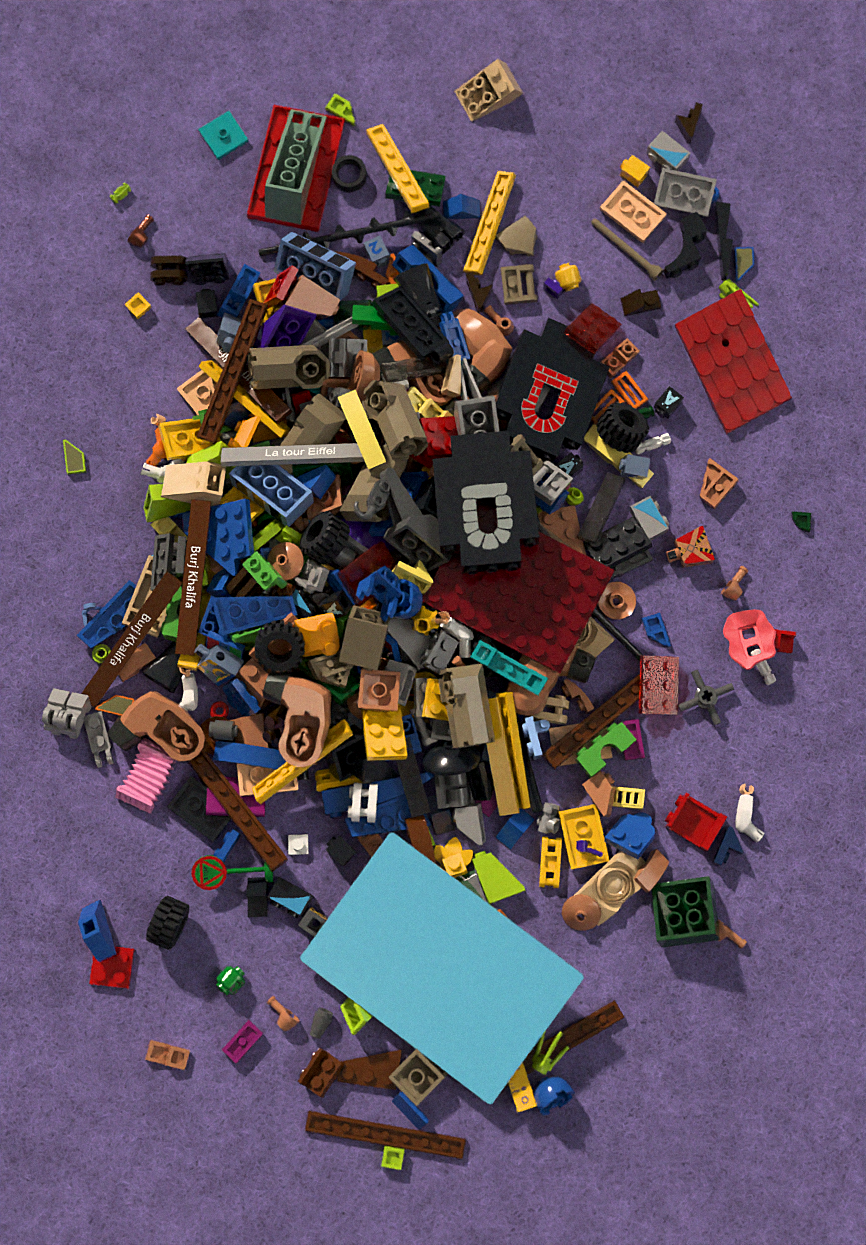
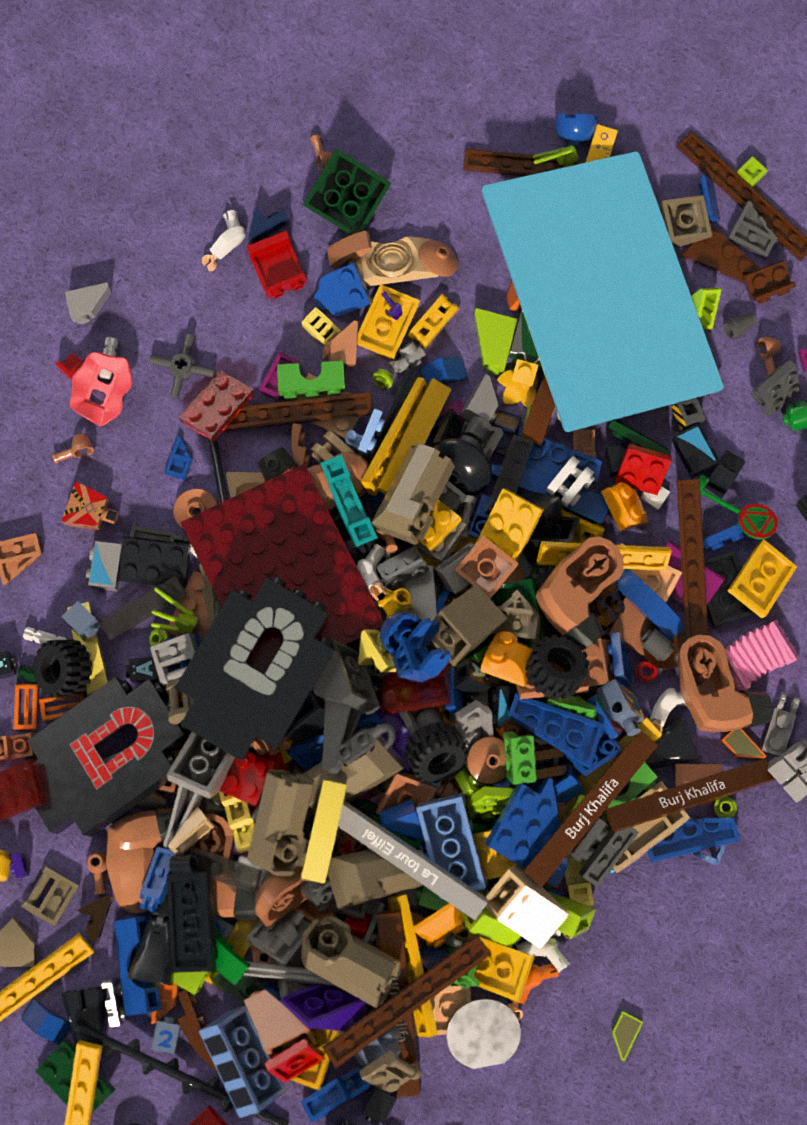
camera: 150 degrees left, 0 degrees up
(169, 392) = (483, 1033): none -> sticker
(178, 833) = (762, 578): none -> yellow plate
(213, 322) = (386, 1077): none -> dark tan plate
(257, 992) = (777, 388): none -> dark grey plate
(313, 817) = (625, 506): none -> light orange slope
(317, 849) = (643, 469): none -> red plate
(333, 874) = (620, 430): none -> dark green plate
(359, 1106) = (753, 232): none -> dark grey wing
(555, 790) = (382, 378): none -> lime plate
(564, 515) = (184, 622): none -> lime plant
(810, 694) = (87, 302): none -> light grey slope

